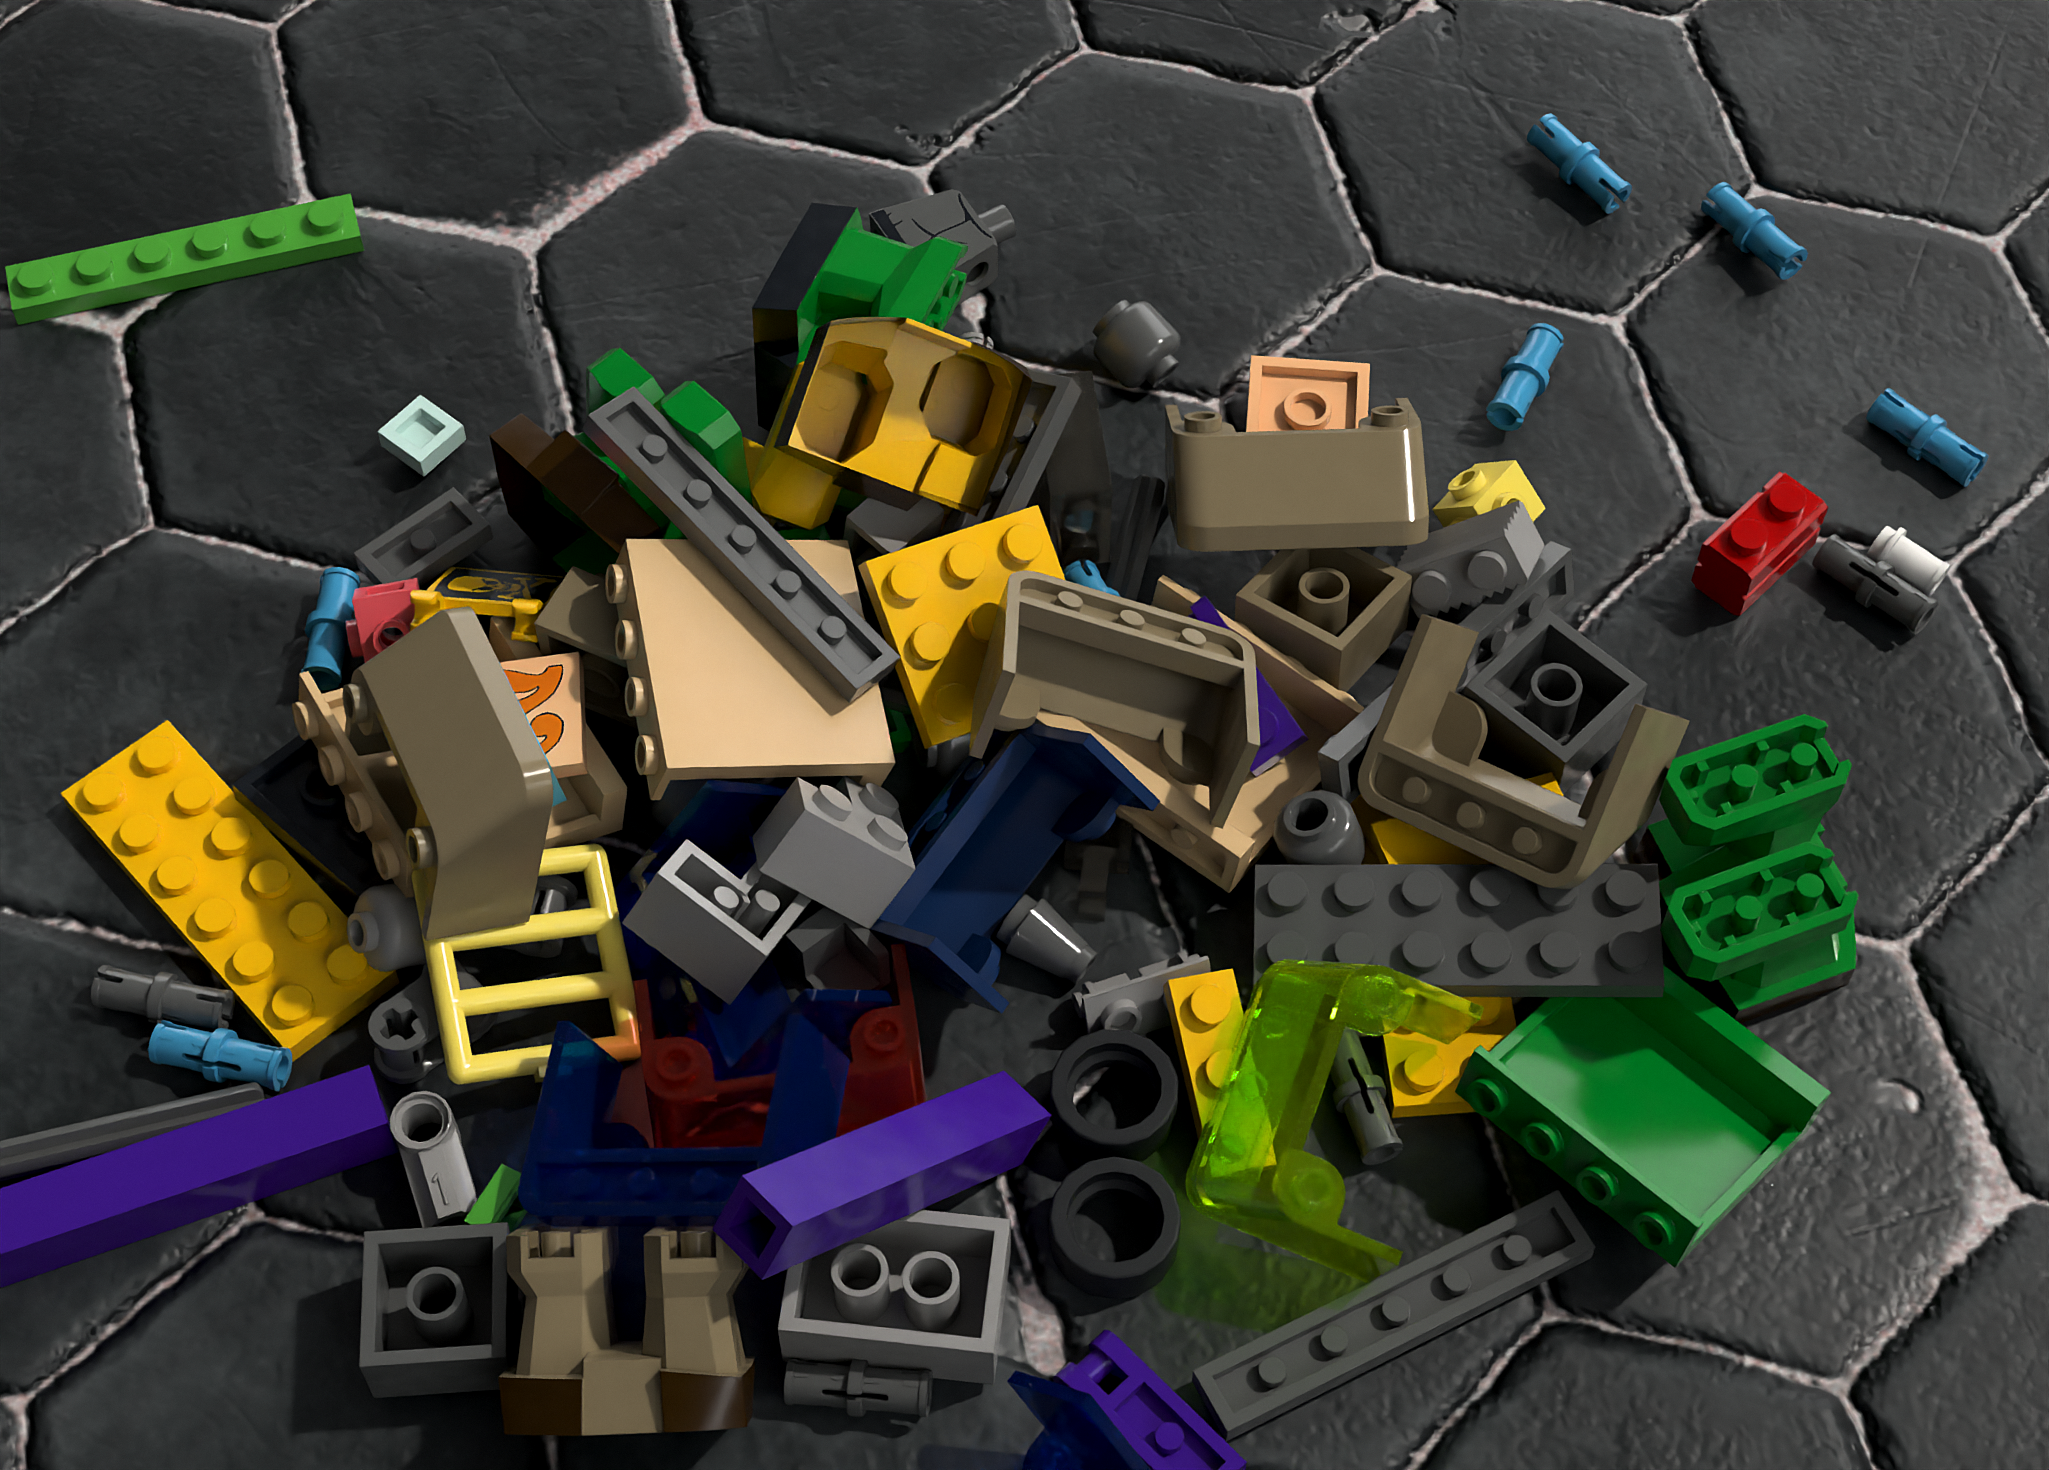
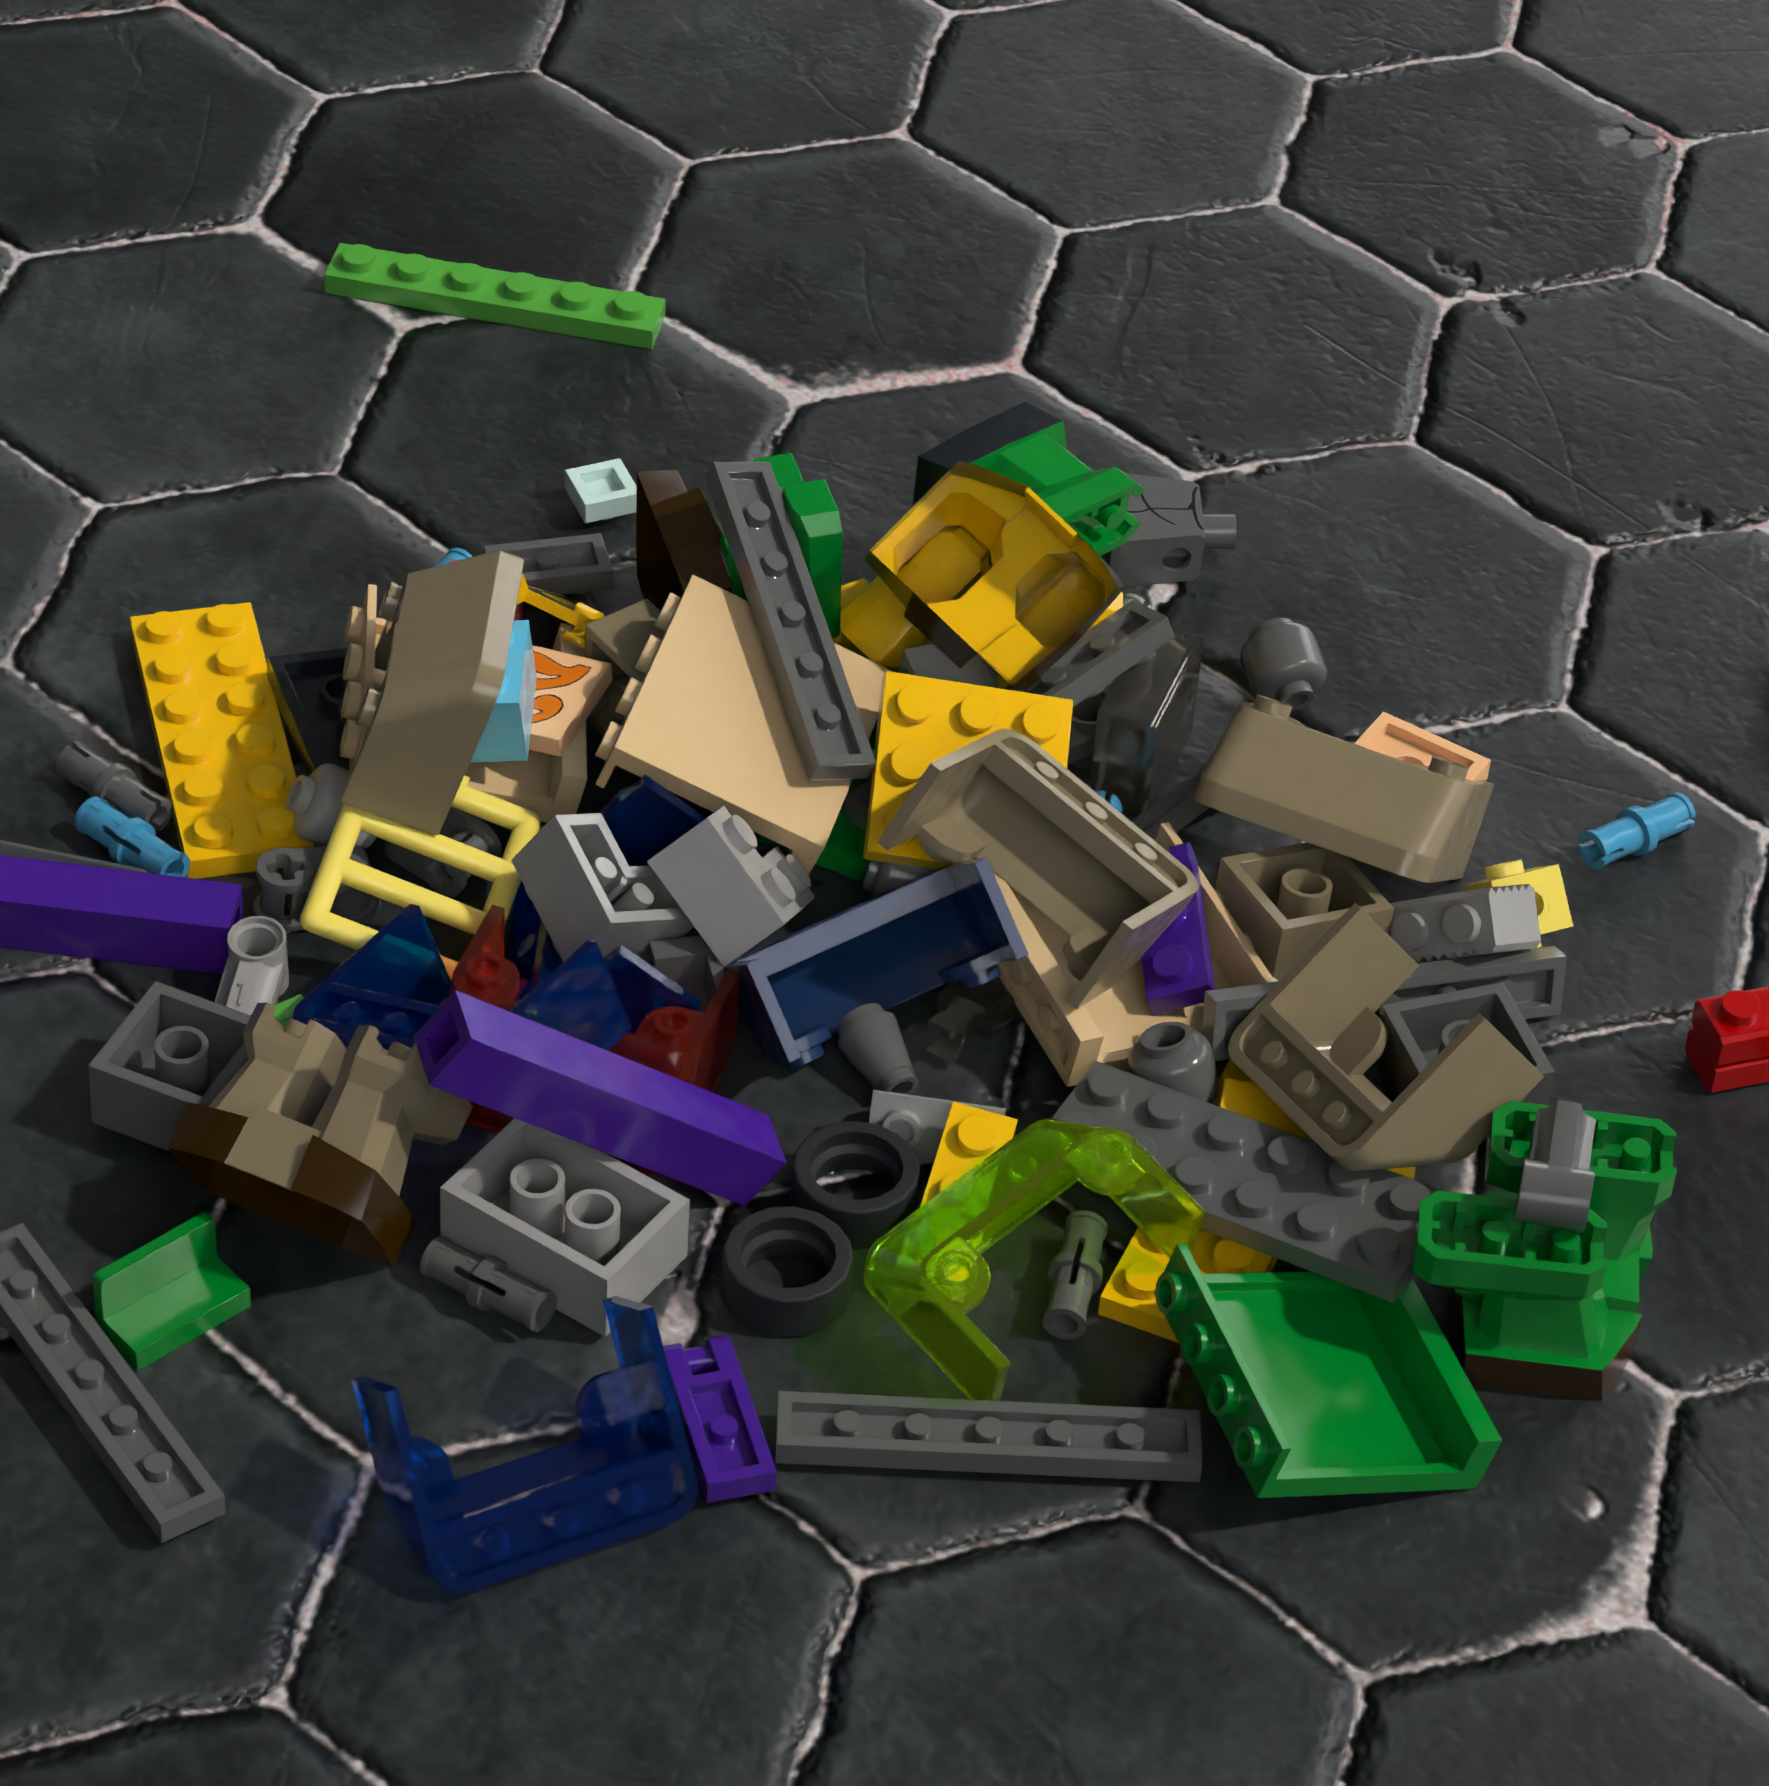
camera: 25 degrees right, 15 degrees down
(1779, 838) = (1557, 1176): none -> dark grey piece

